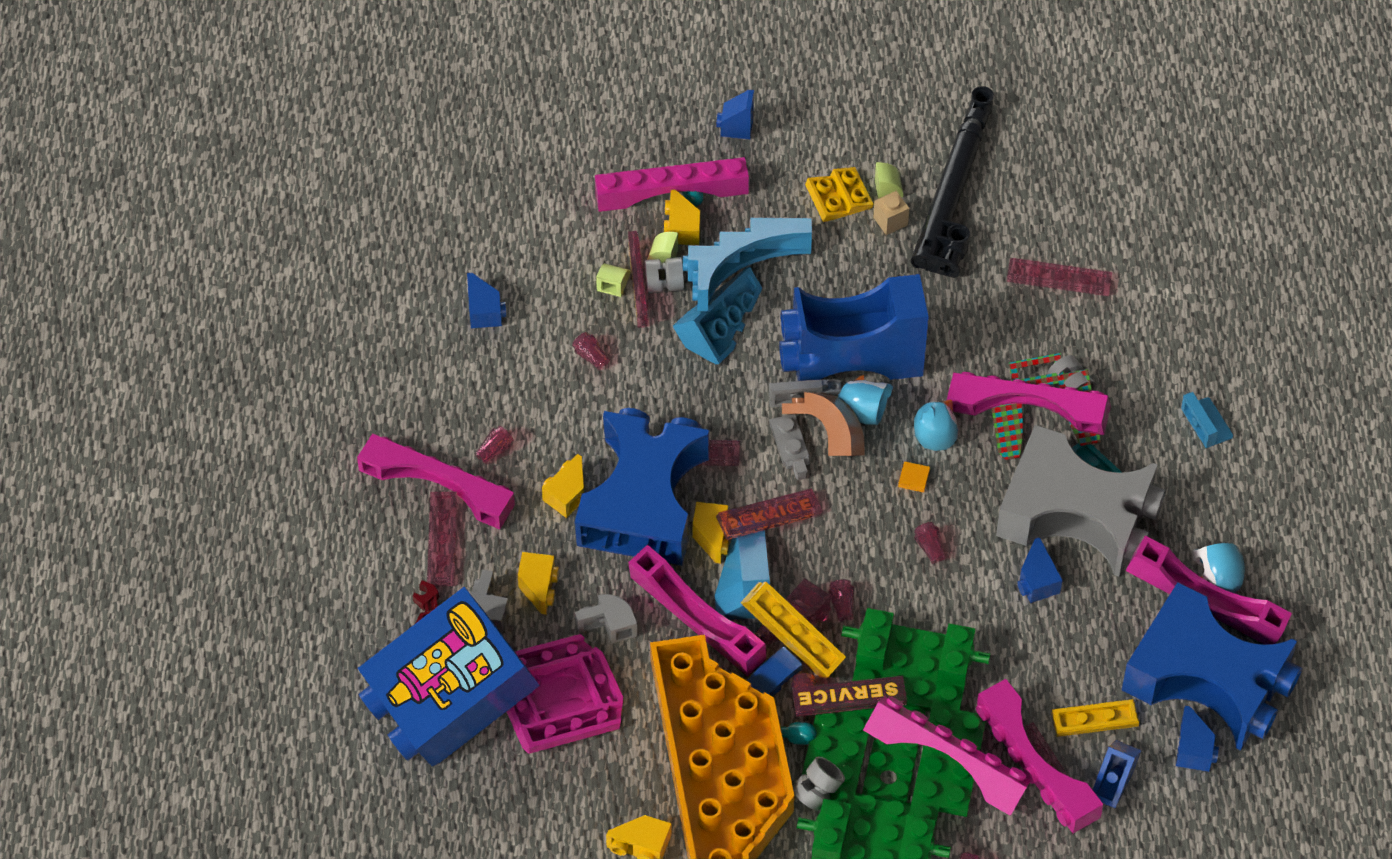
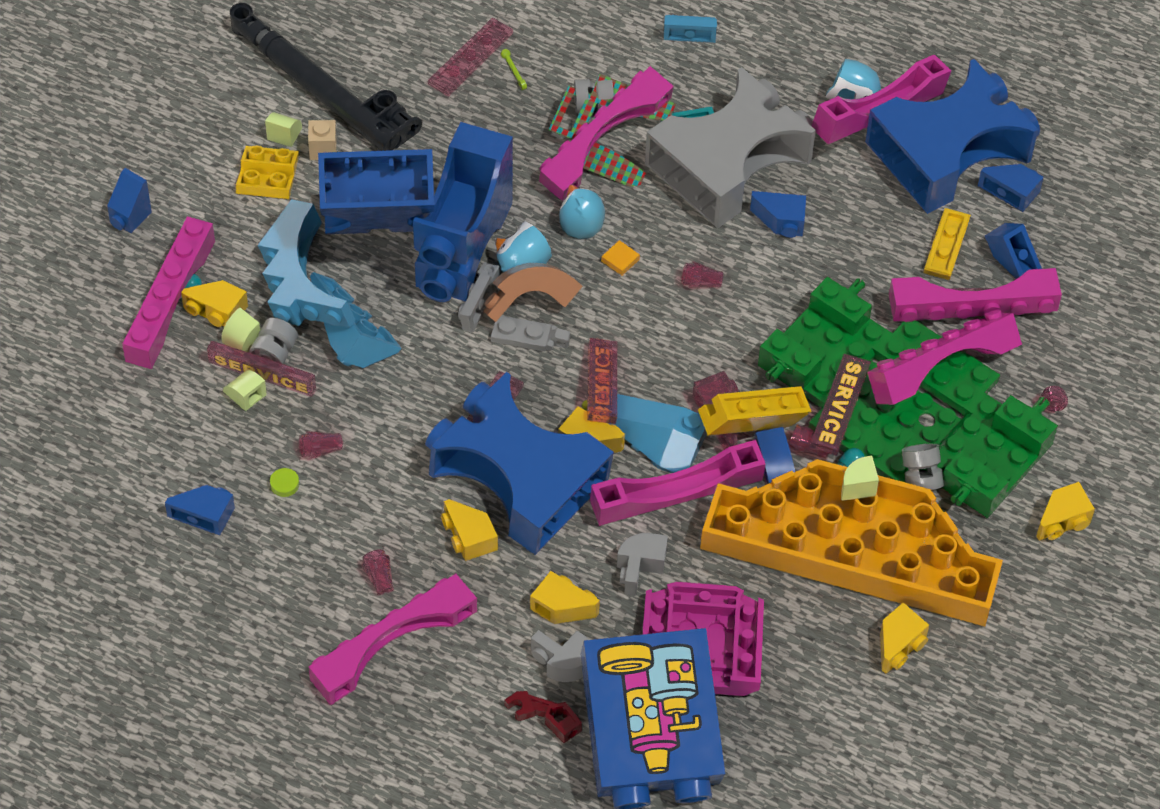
camera: 65 degrees left, 0 degrees up
(442, 538) = (460, 664): clear pink tile -> none
(542, 346) = (284, 482): none -> lime tile
(763, 732) = (860, 479): none -> yellowish green brick
(815, 247) = (375, 189): none -> blue brick
(842, 598) = (720, 362): clear pink cone -> none
(1081, 300) = (505, 53): none -> lime hinge

